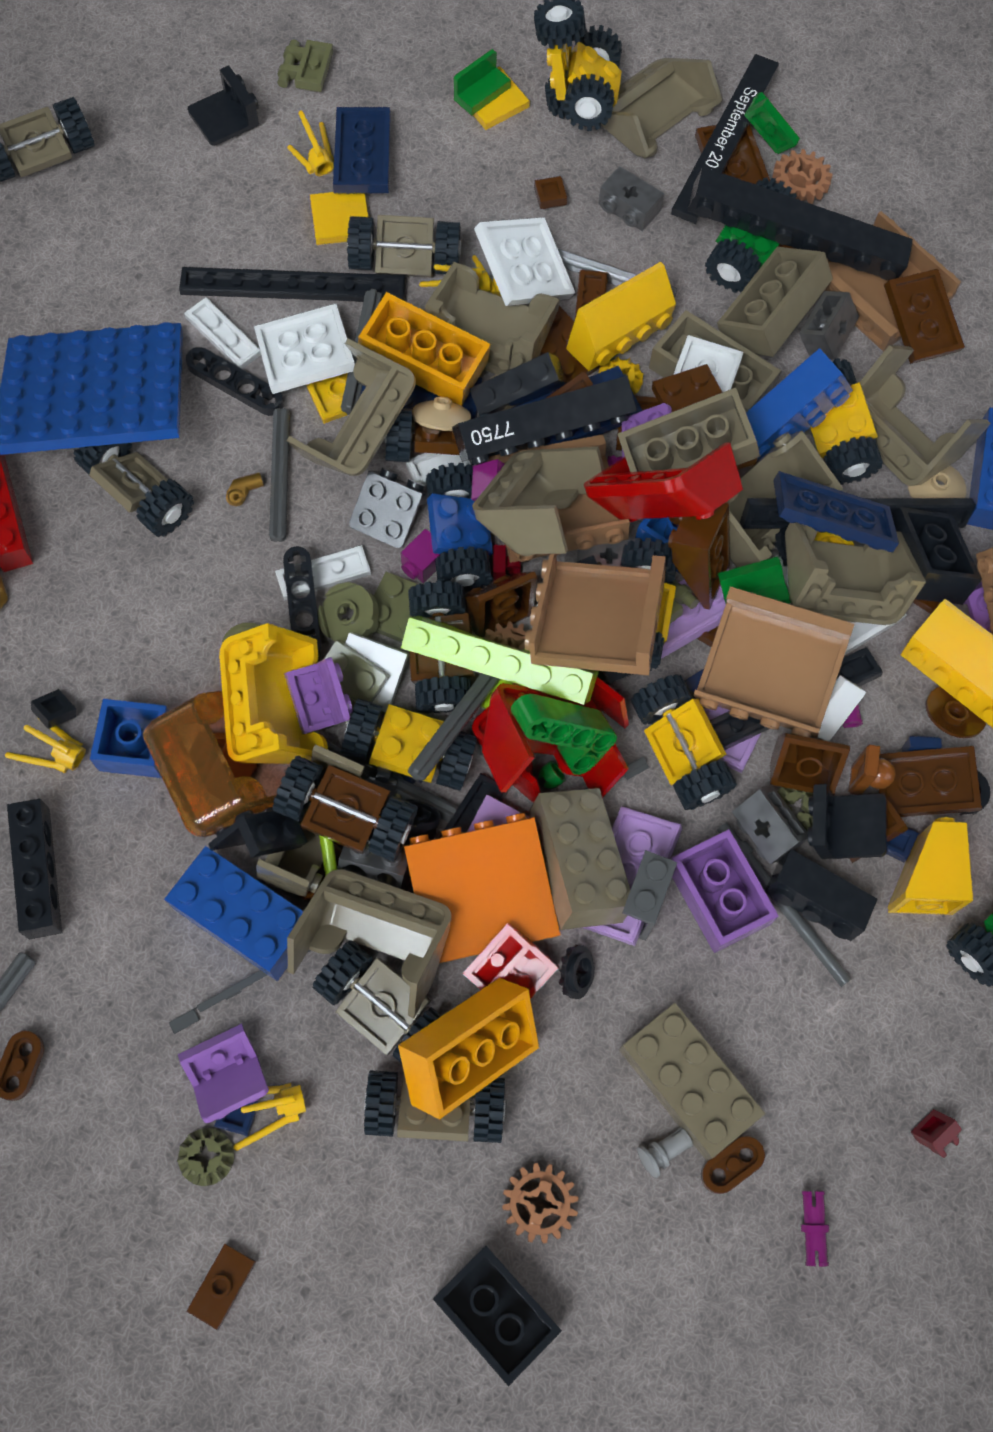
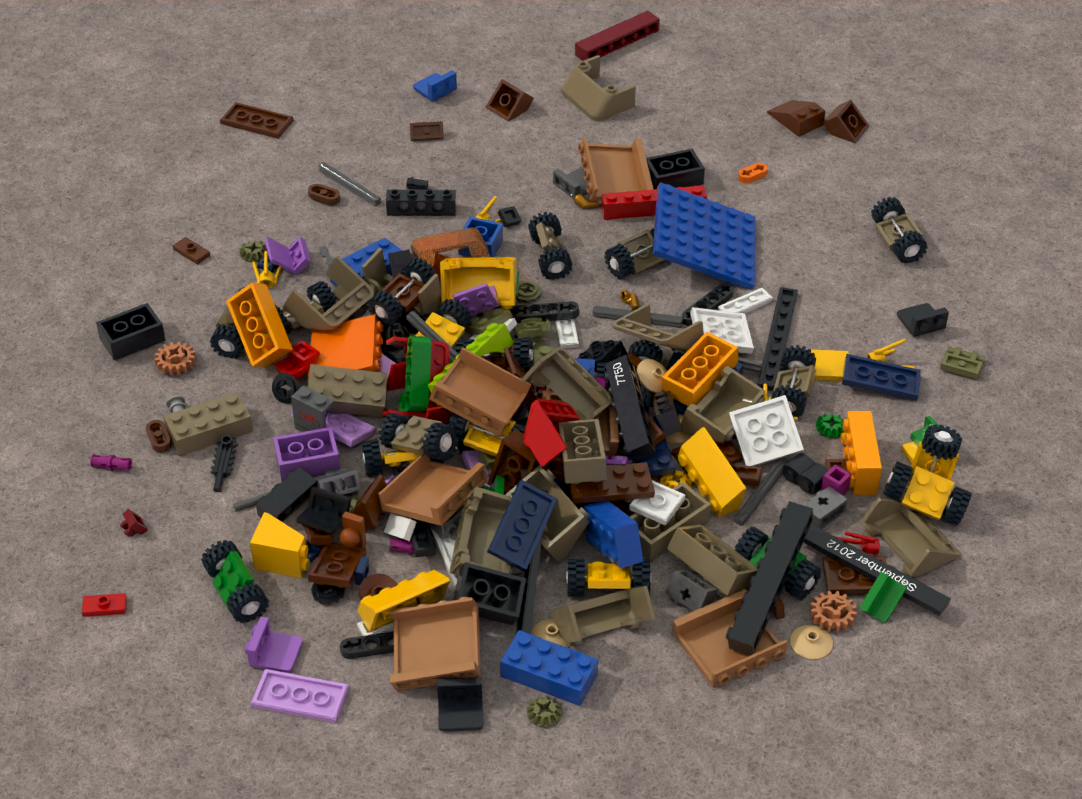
camera: 105 degrees right, 25 degrees down
(95, 638) = (556, 260): none -> black plate
(473, 212) = (824, 428): none -> green gear
(529, 152) = (861, 452): none -> light orange brick
(573, 221) = (805, 473): none -> black brick
(586, 183) = (837, 479): none -> magenta brick
(671, 709) = (418, 436): none -> plate
(679, 150) = (867, 544): none -> red plant
(758, 1031) = (223, 460): none -> black piece
(858, 206) = (811, 648): none -> tan dish
(924, 315) = (689, 649): reddish brown plate -> none

